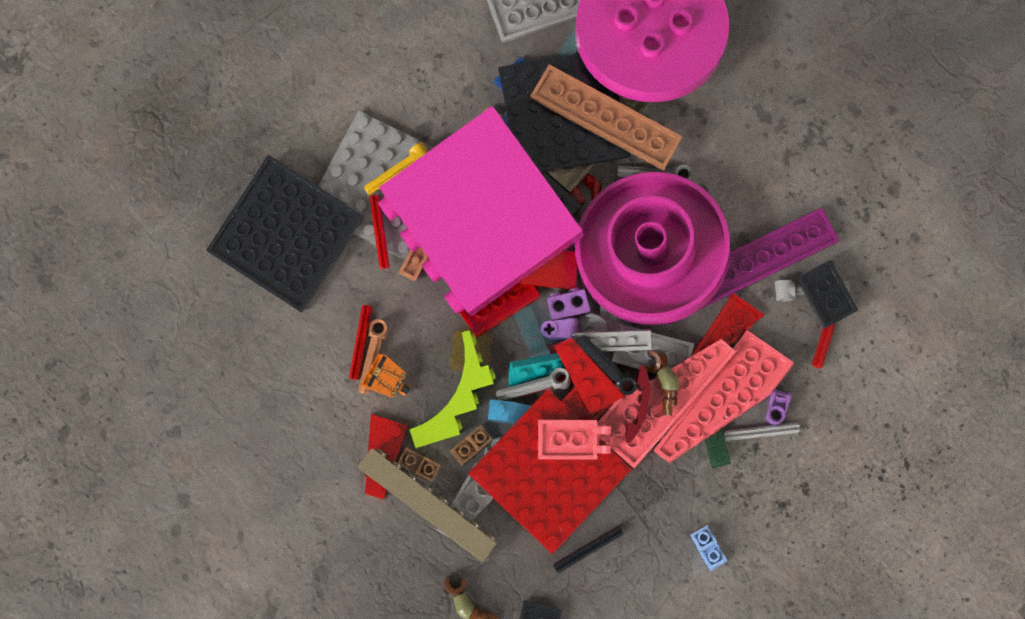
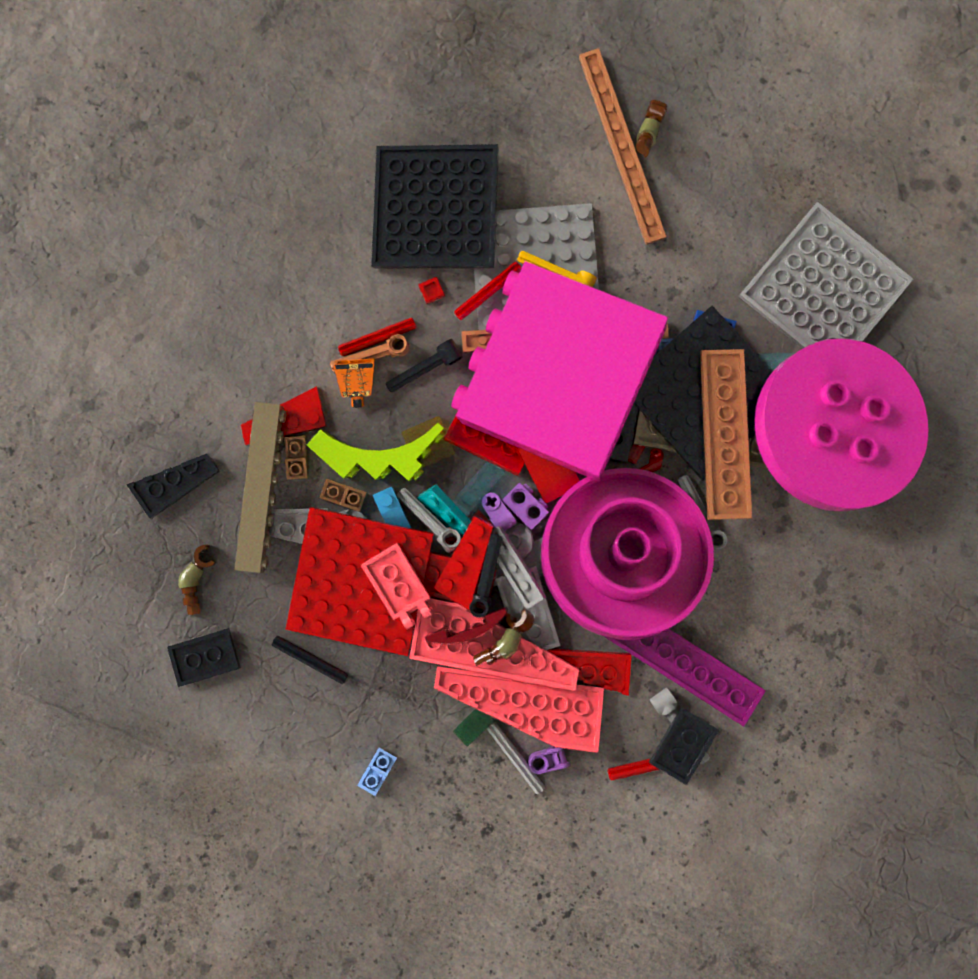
camera: 65 degrees right, 5 degrees up
(326, 29) = (649, 130): none -> reddish brown piece
(327, 59) = (622, 146): none -> nougat plate
(349, 277) = (431, 290): none -> red tile
(379, 580) = (165, 488): none -> black wing
(408, 295) = (446, 353): none -> black axle

